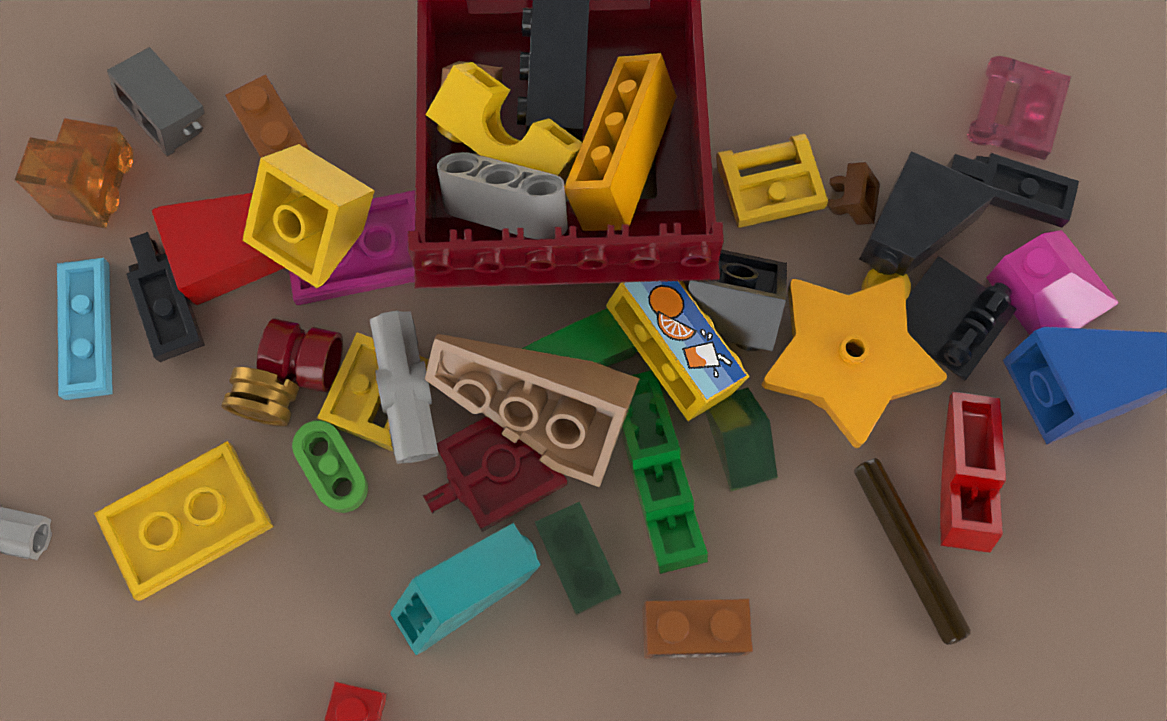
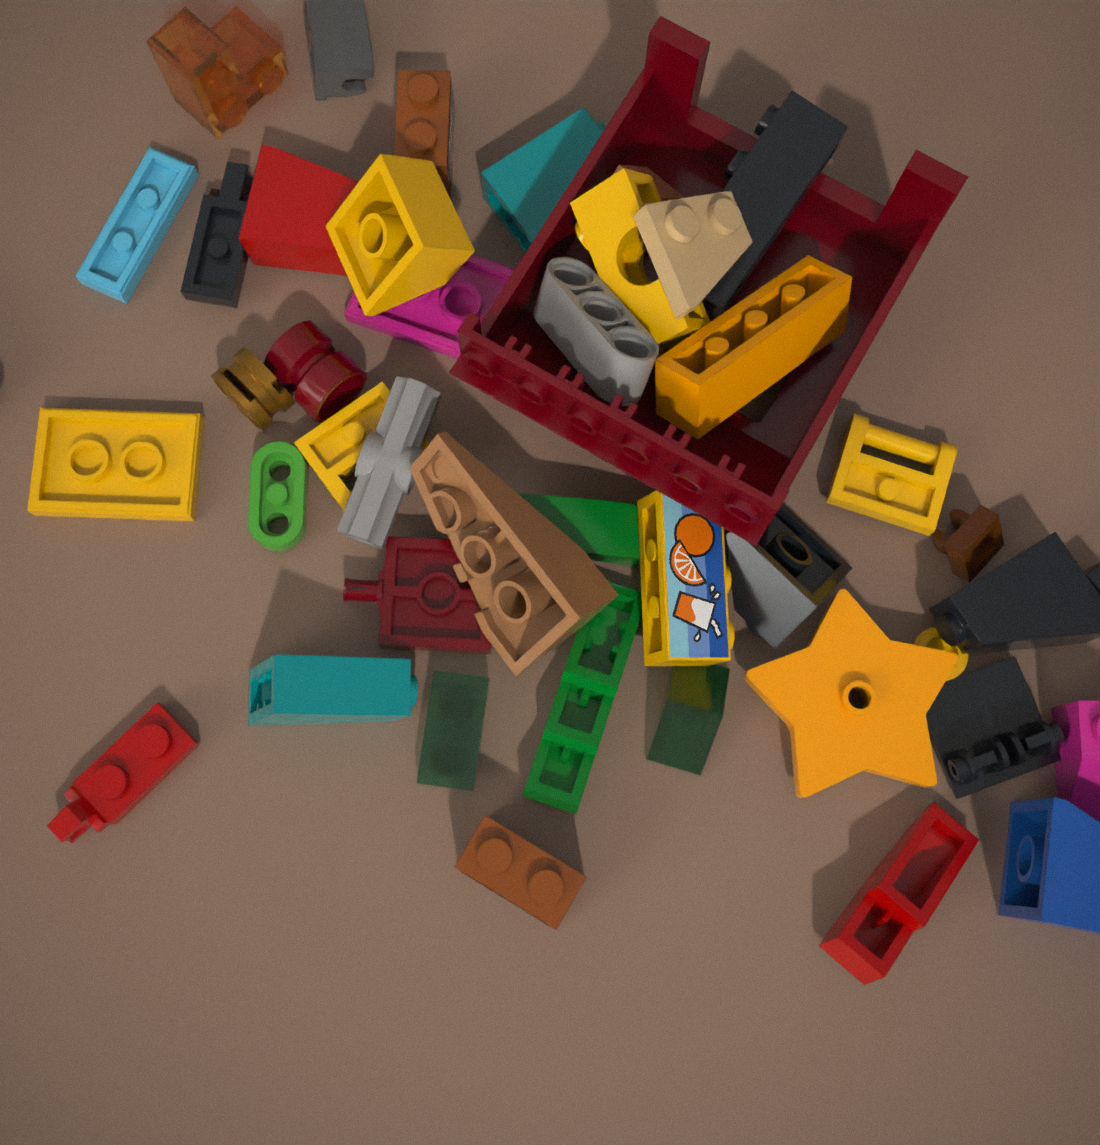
camera: 30 degrees right, 5 degrees up
(383, 116) = (533, 178): none -> teal slope
(537, 92) = (692, 244): none -> tan wing
(912, 552) = (785, 933): dark brown axle -> none

